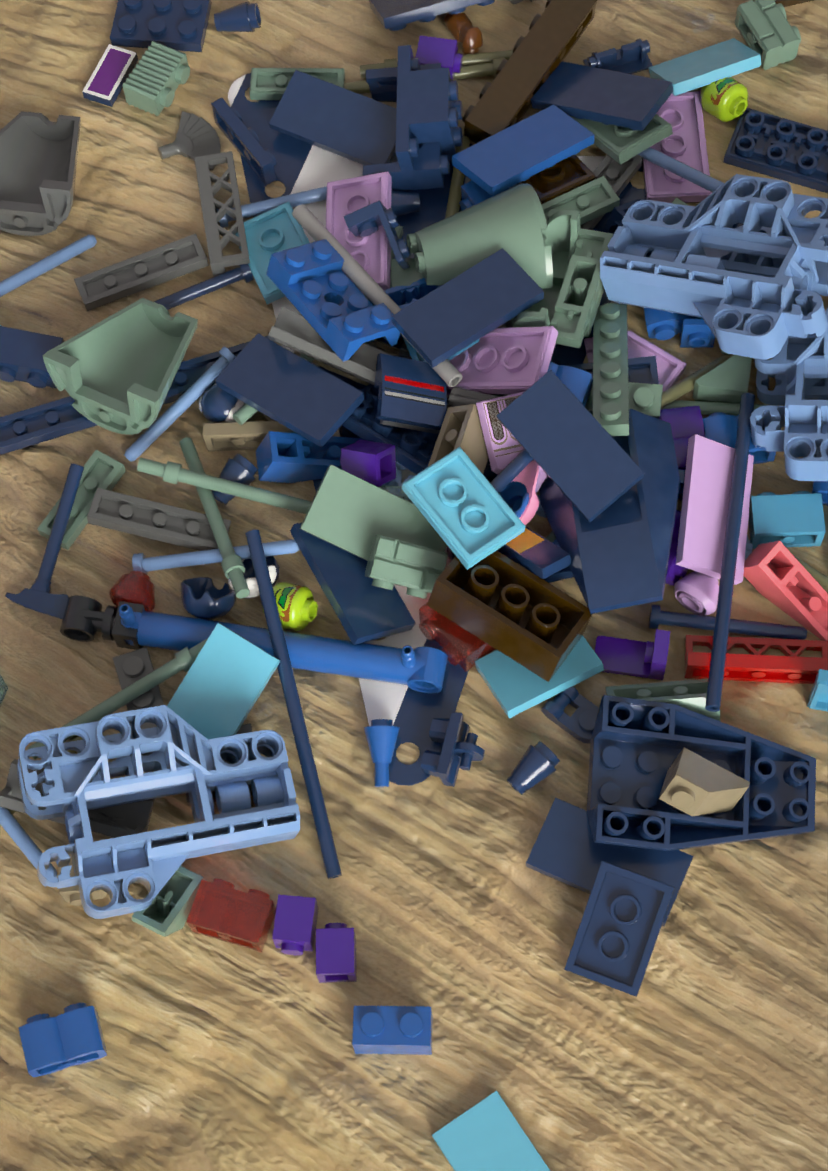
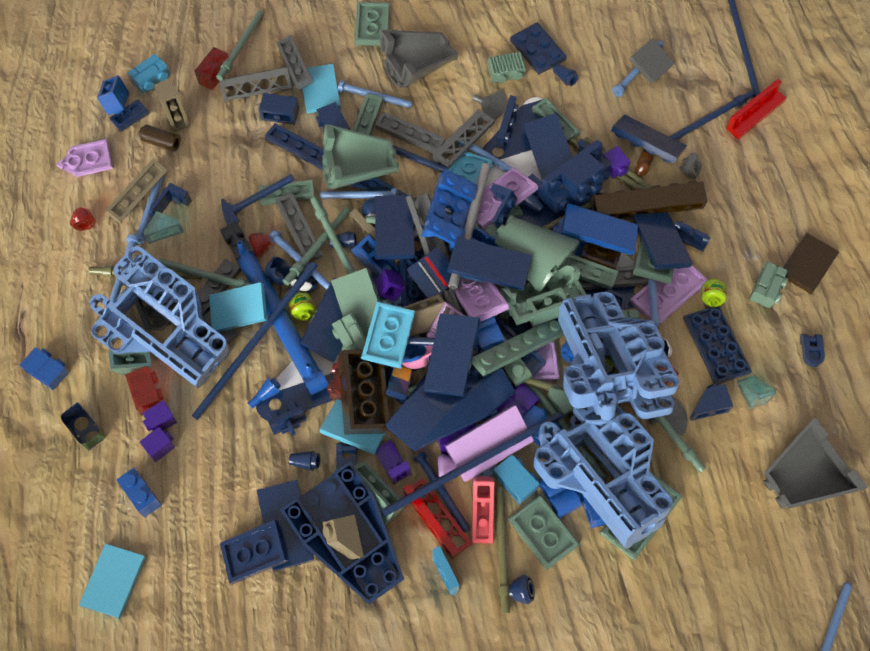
camera: 45 degrees right, 0 degrees up
(57, 302) = (368, 114): none -> sand green plate
(110, 75) = (493, 49): tile -> none
(208, 1028) = (69, 418): none -> dark blue piece
(706, 66) = (721, 272): medium azure tile -> none

